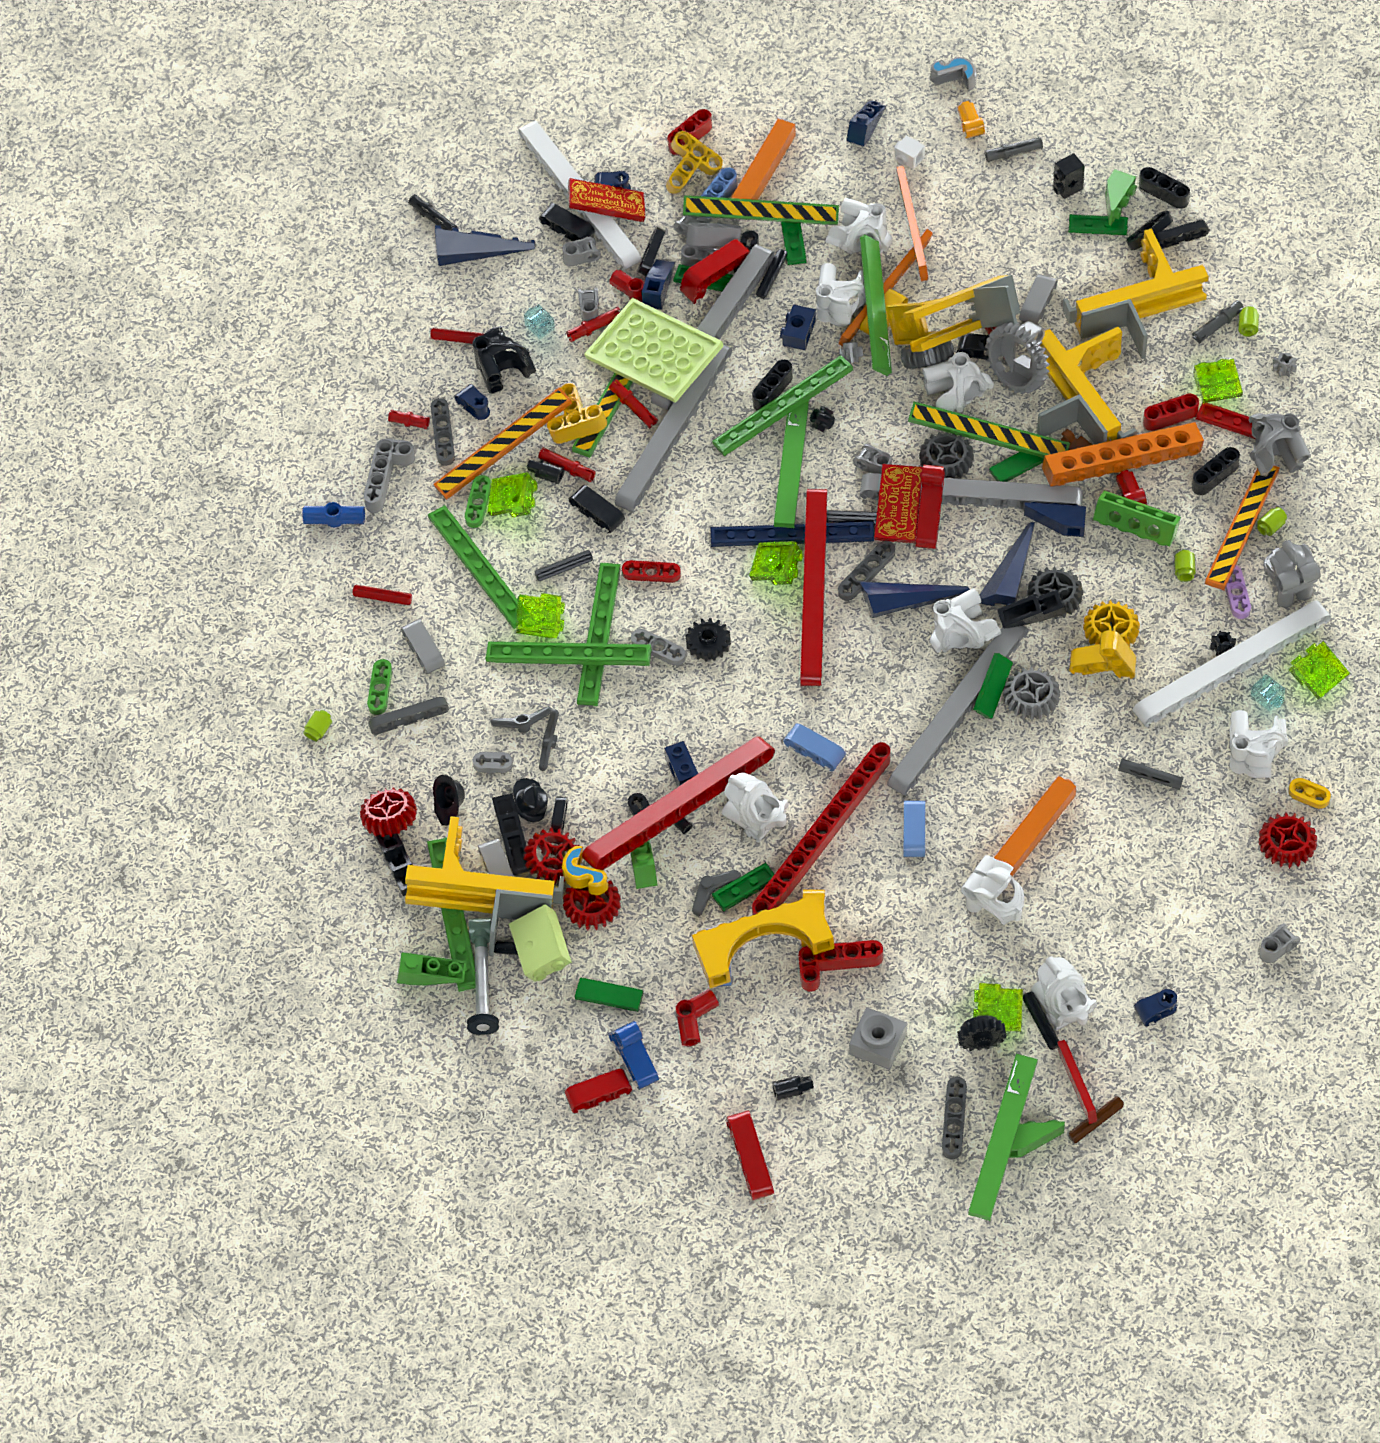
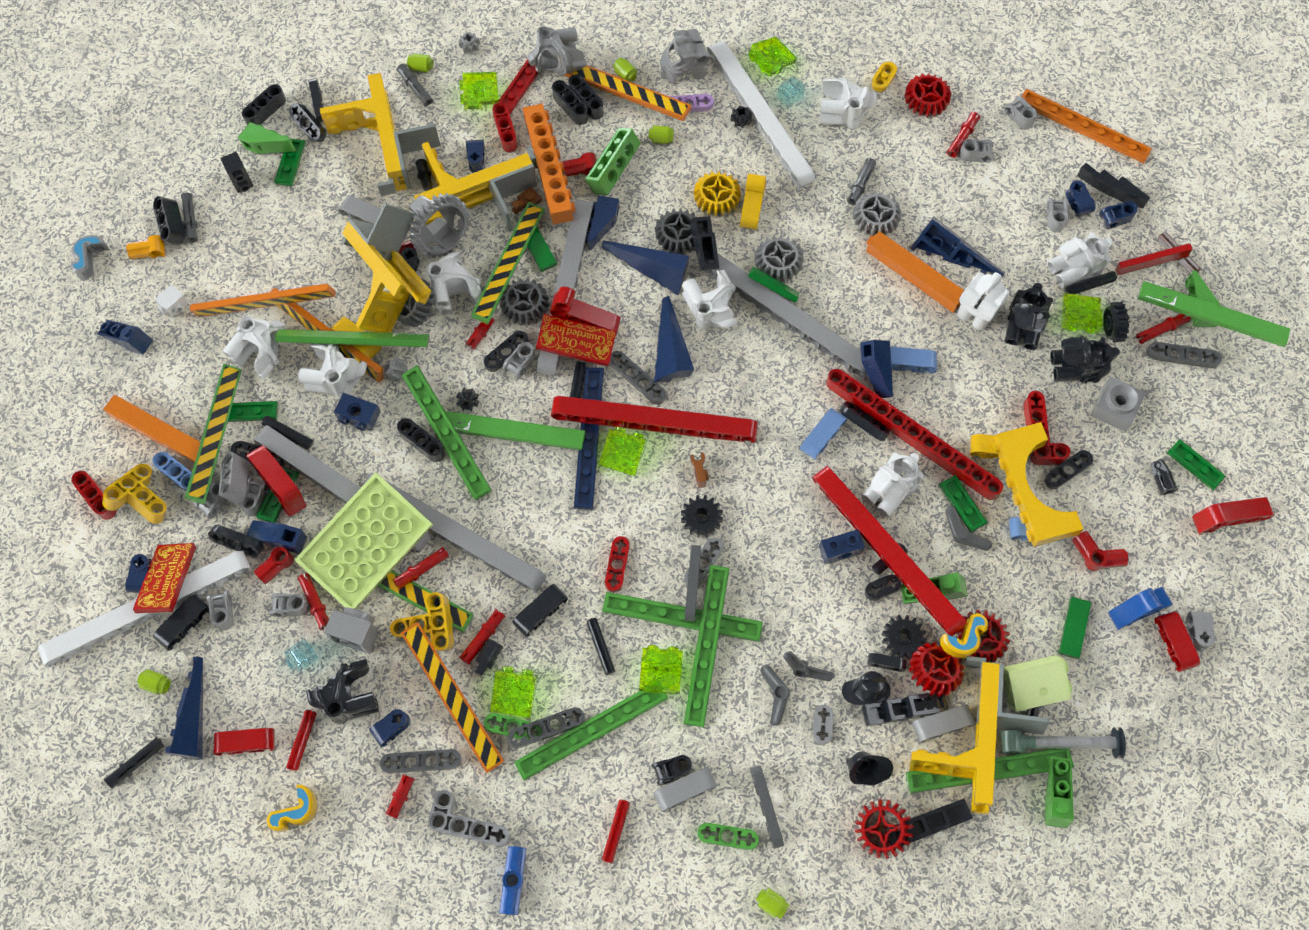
camera: 90 degrees left, 10 degrees up
(392, 347) = (296, 815): none -> yellow animal
(441, 632) = (670, 769): none -> black piece
(454, 292) = (244, 740): none -> red beam
(474, 525) = (547, 730): none -> dark grey beam
(507, 214) = (153, 682): none -> lime brick
(563, 354) = (352, 629): none -> light grey piece
(586, 819) = (894, 641): none -> black gear
(614, 1114) = (1201, 629): none -> light grey piece
(630, 632) = (692, 586): none -> dark grey beam
(756, 634) = (700, 473): none -> dark orange plate
(793, 982) = (1072, 463): none -> black beam
(813, 1125) = (1196, 464): none -> green tile
(824, 788) = (864, 421): none -> black beam
(884, 441) = (505, 344): none -> black beam
(902, 421) = (479, 333): none -> red axle
(902, 784) = (877, 364): none -> dark blue slope
(928, 992) = (1081, 359): none -> black helmet
(978, 940) = (1028, 320): none -> black helmet
(992, 1101) = (1169, 324): none -> red pin
(1005, 131) = (169, 220): none -> black beam
(1075, 865) = (942, 241): none -> dark blue wedge
(1095, 795) = (868, 218): none -> light grey gear
(1132, 389) = (475, 154): none -> dark blue piece
(1135, 982) = (1057, 214): none -> light grey piece
(1139, 1047) = (1116, 214): none -> dark blue piece
(1179, 1049) = (1119, 189): none -> black slope
(1212, 897) = (977, 151): none -> light grey piece
(1230, 478) = (587, 95): none -> black beam
(1245, 885) = (966, 129): none -> red pin
(1272, 1020) = (1087, 126): none -> orange tile

